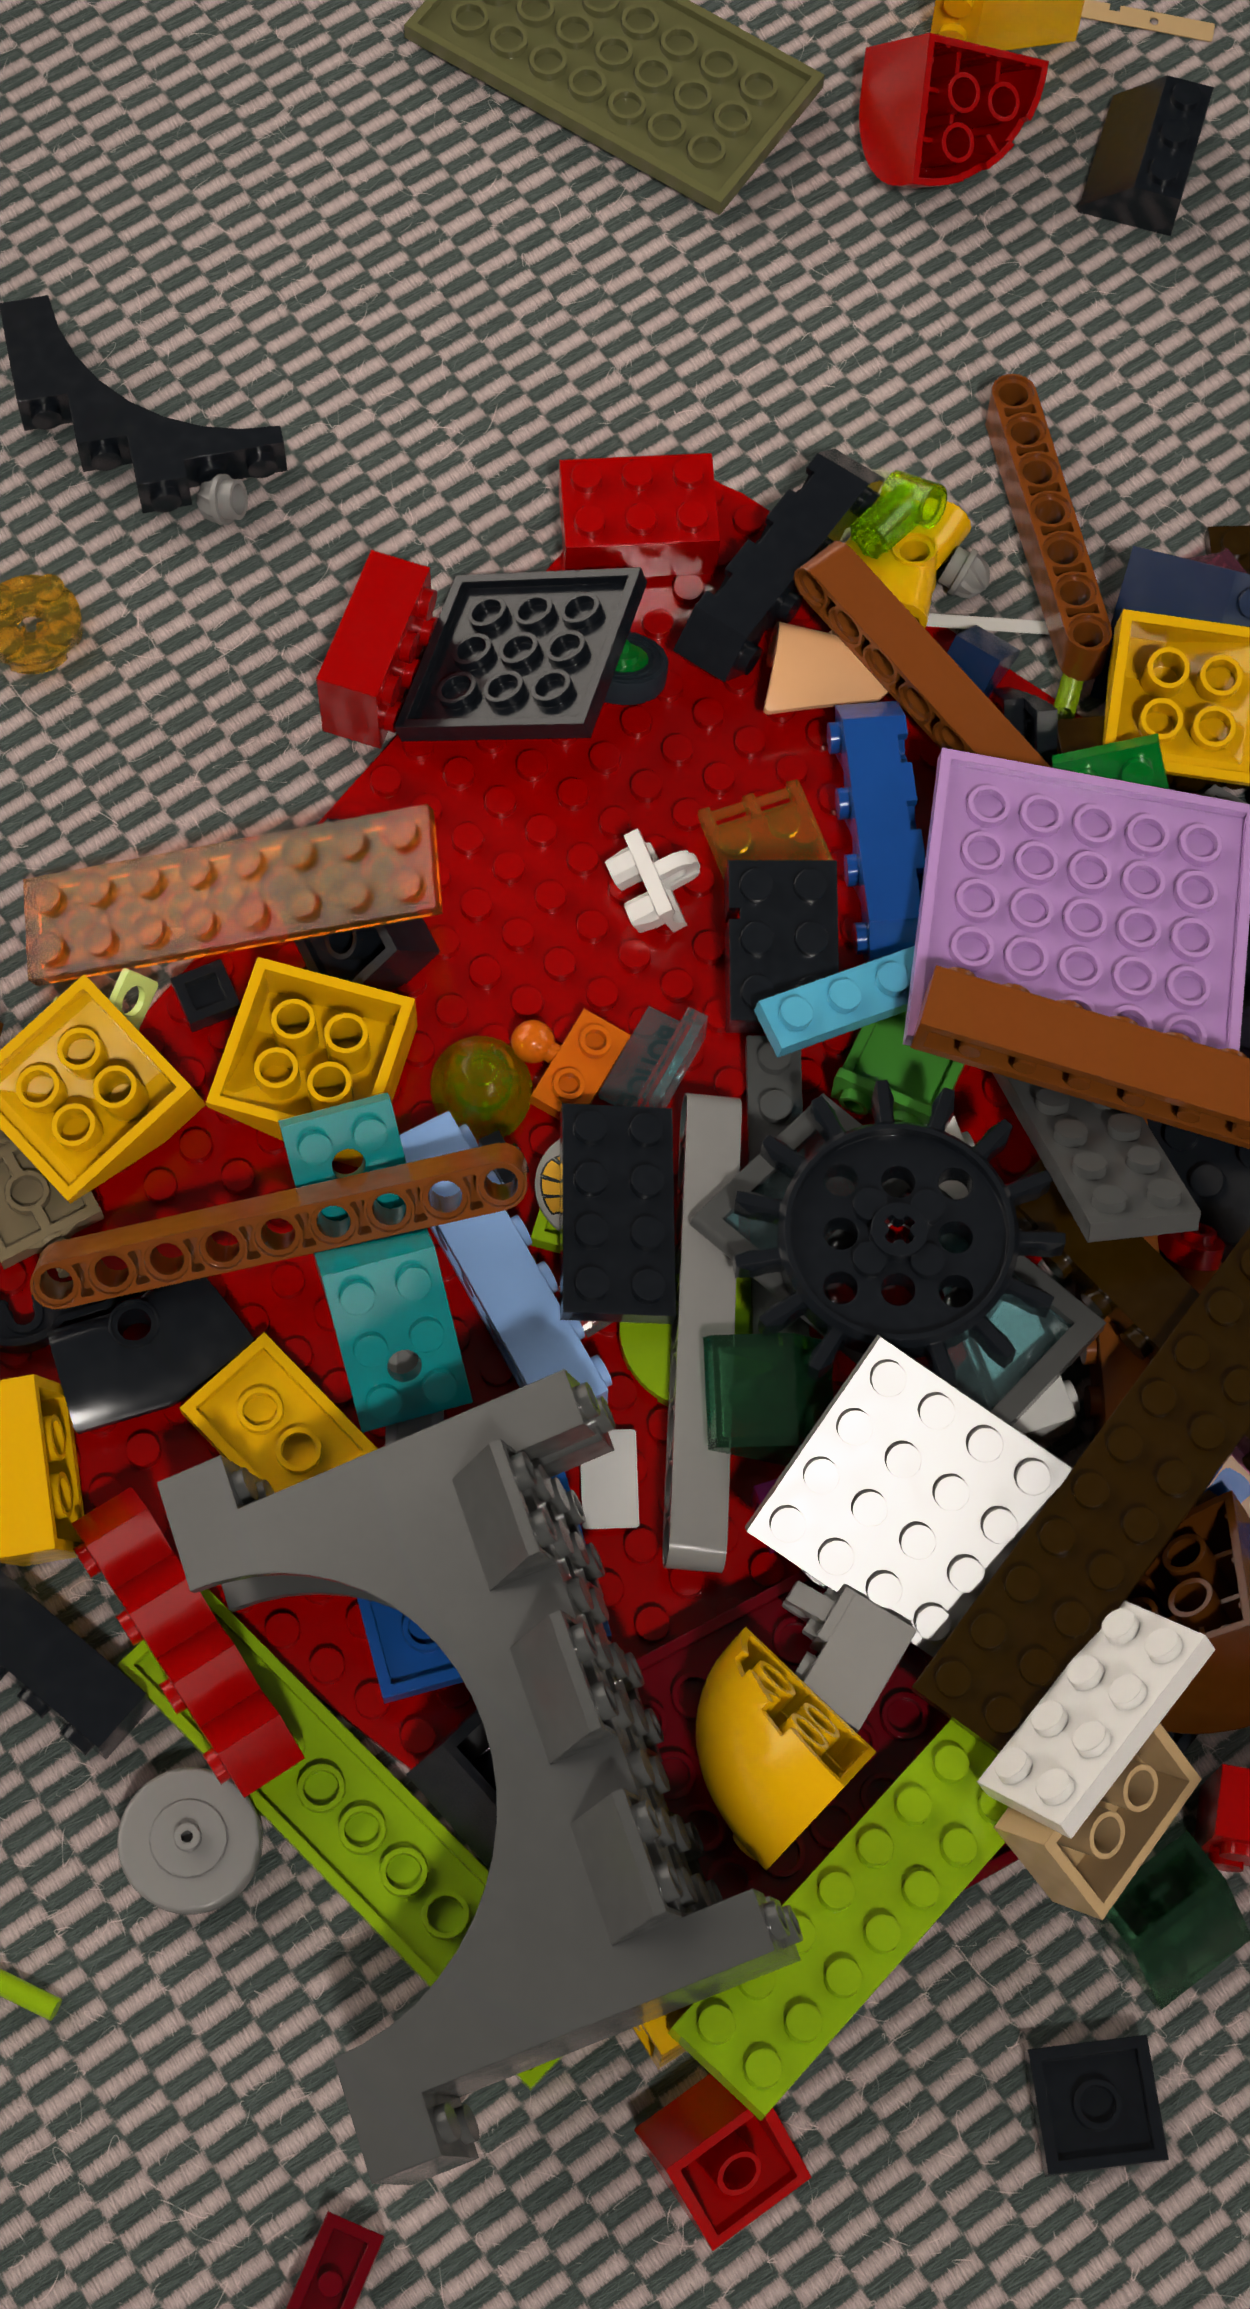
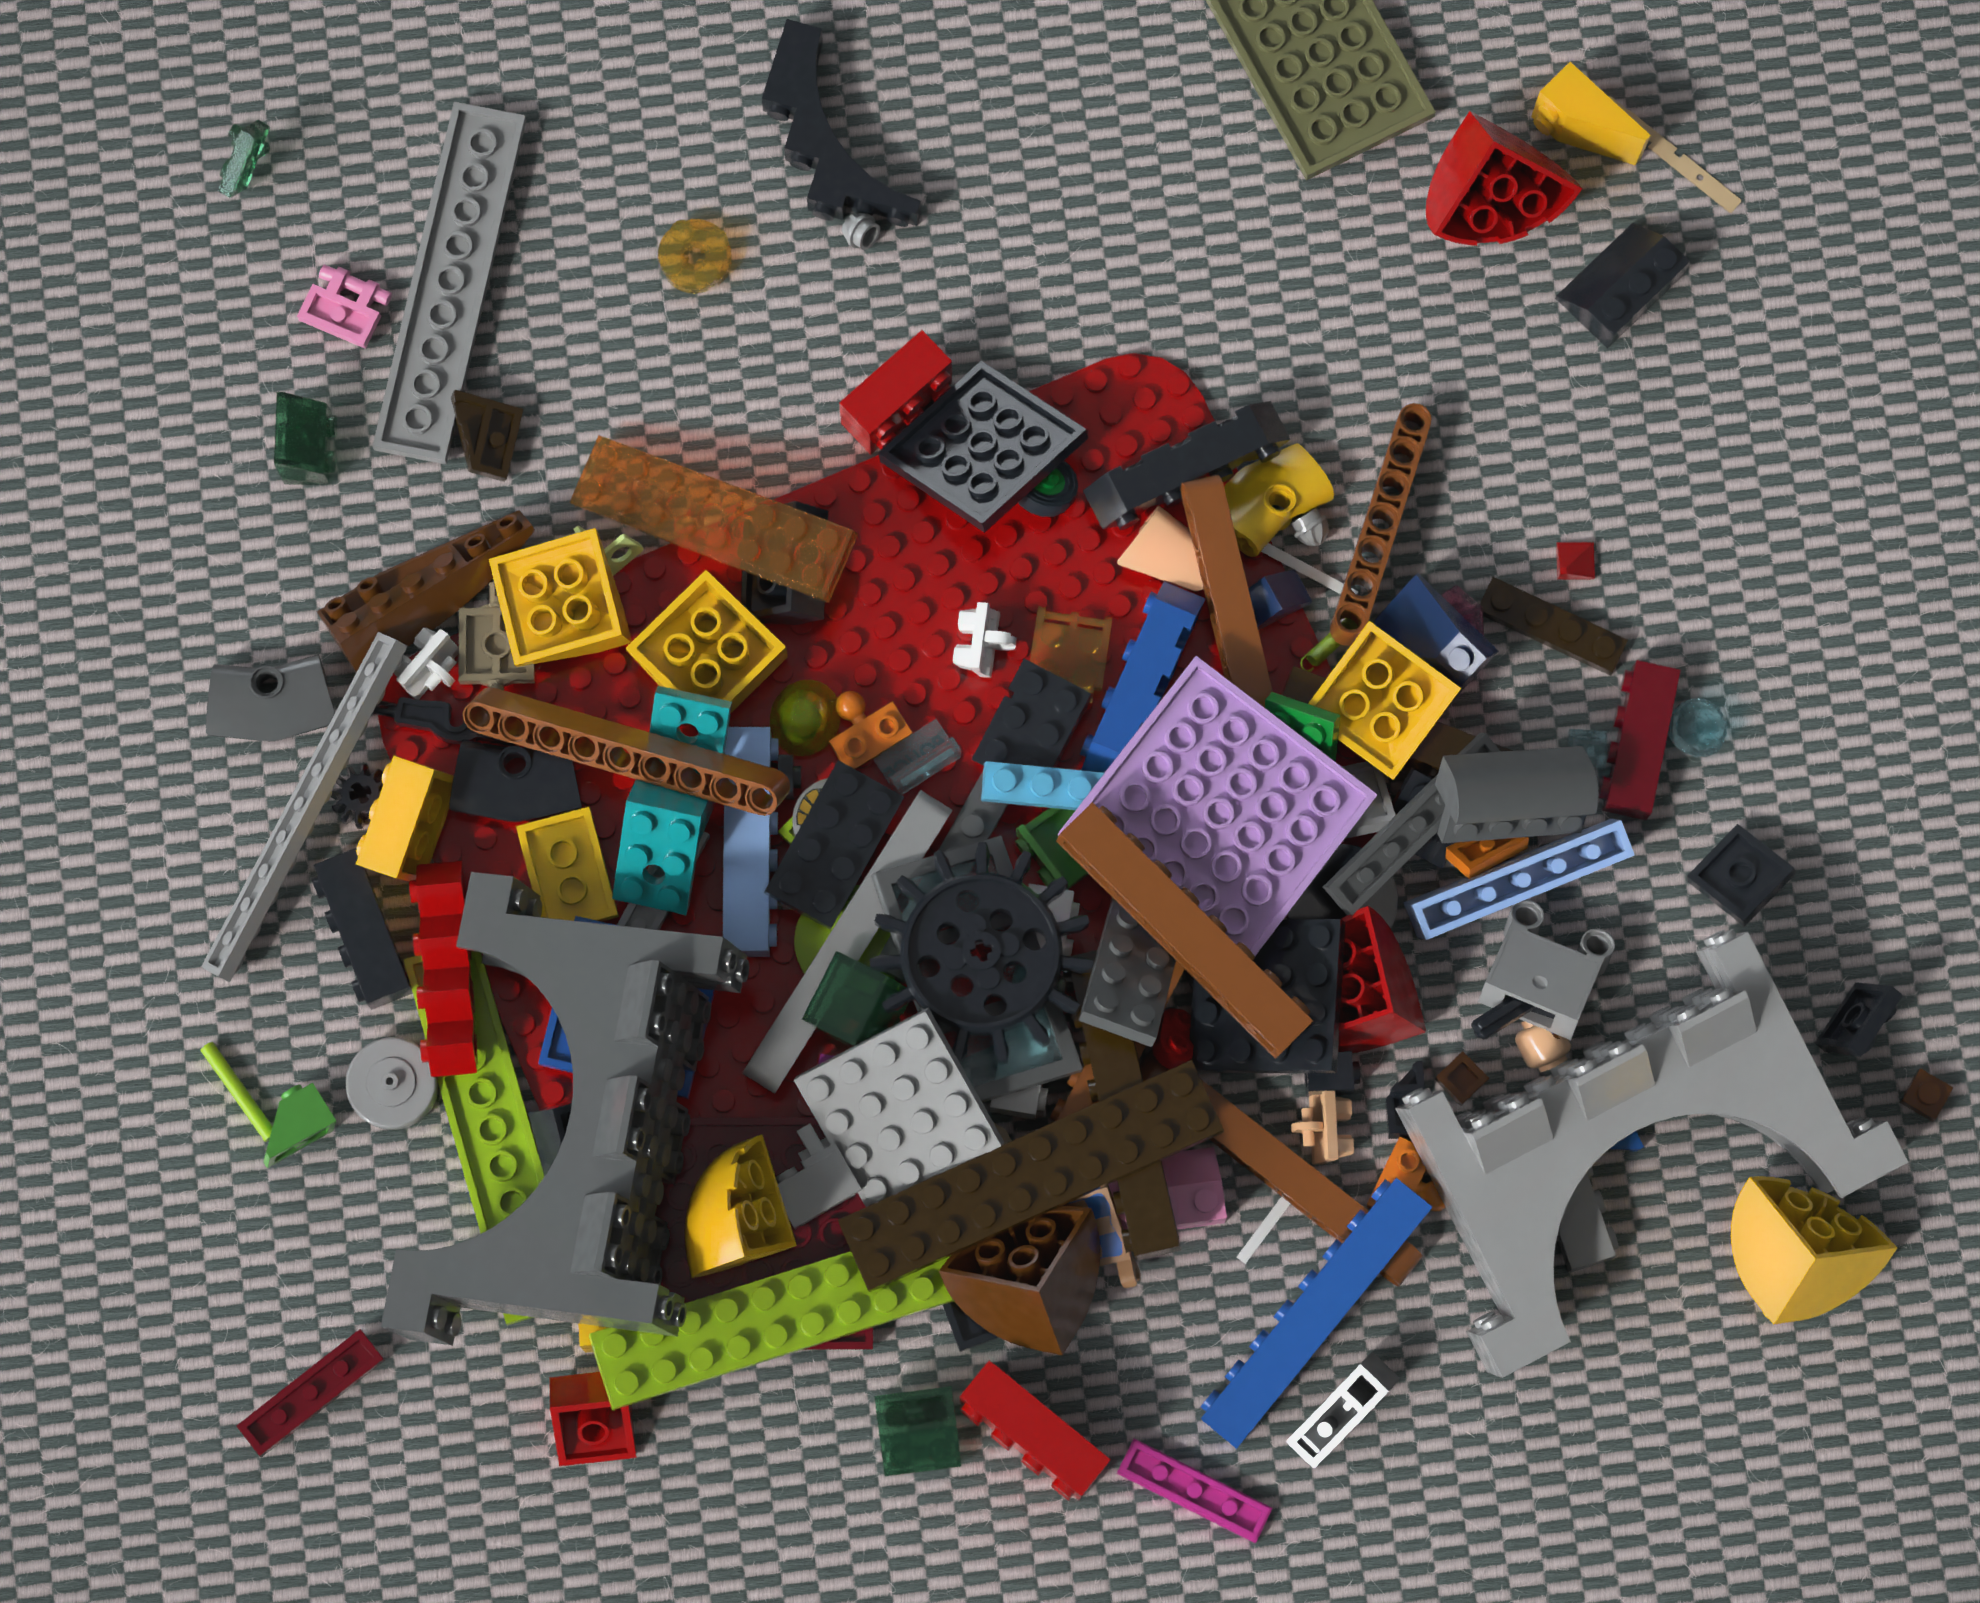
camera: 30 degrees right, 10 degrees up
(85, 1965) = (298, 1122): none -> bright green slope
(206, 995) = (668, 571): black plate -> none
(611, 1485) = (744, 1008): white sticker -> none
(640, 514) = (1115, 384): red brick -> none
(902, 506) = (1289, 466): clear neon green piece -> none
(1032, 718) = (1284, 652): black slope -> none
(1096, 1718) = (924, 1294): white plate -> none
(1096, 2105) = (815, 1507): black plate -> none
(1114, 1839) = (906, 1342): tan brick -> none

